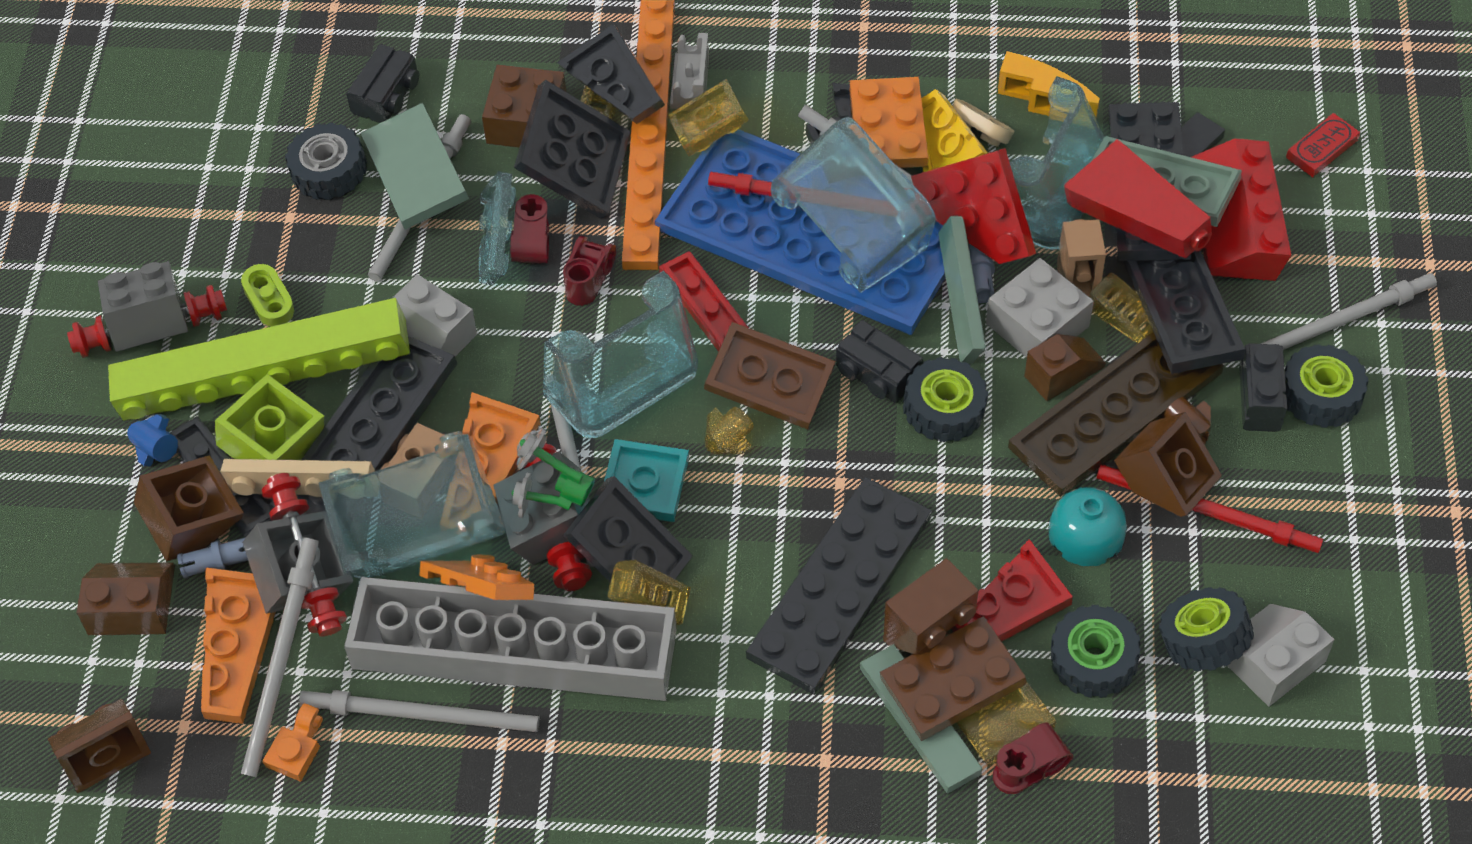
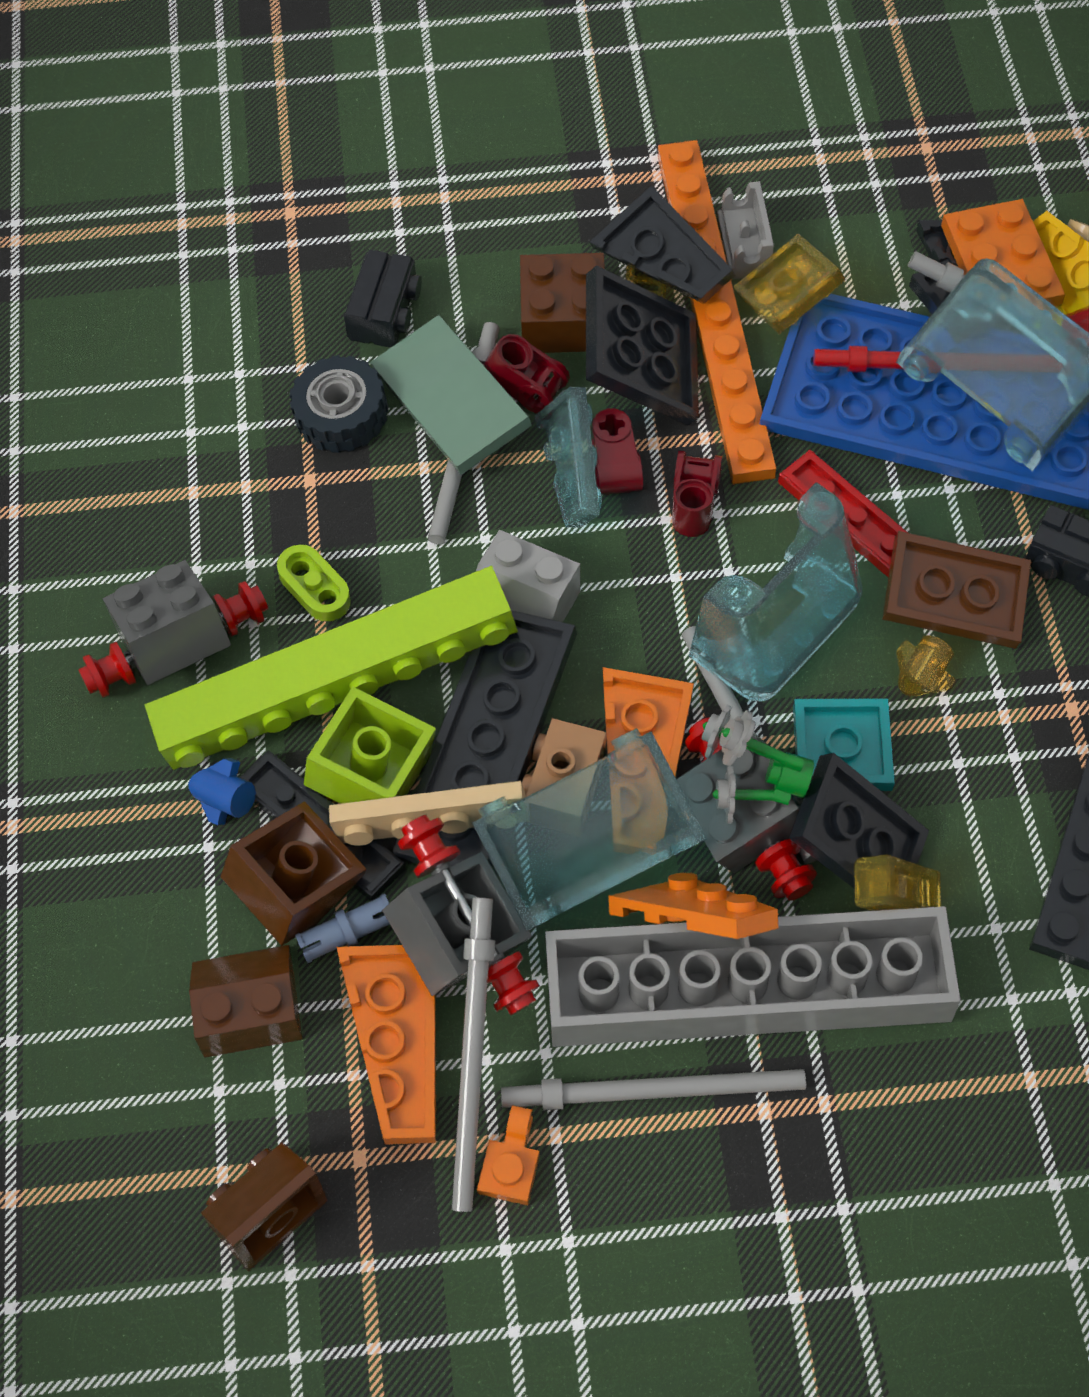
camera: 10 degrees left, 5 degrees up
(481, 159) = (526, 372): none -> dark red piece

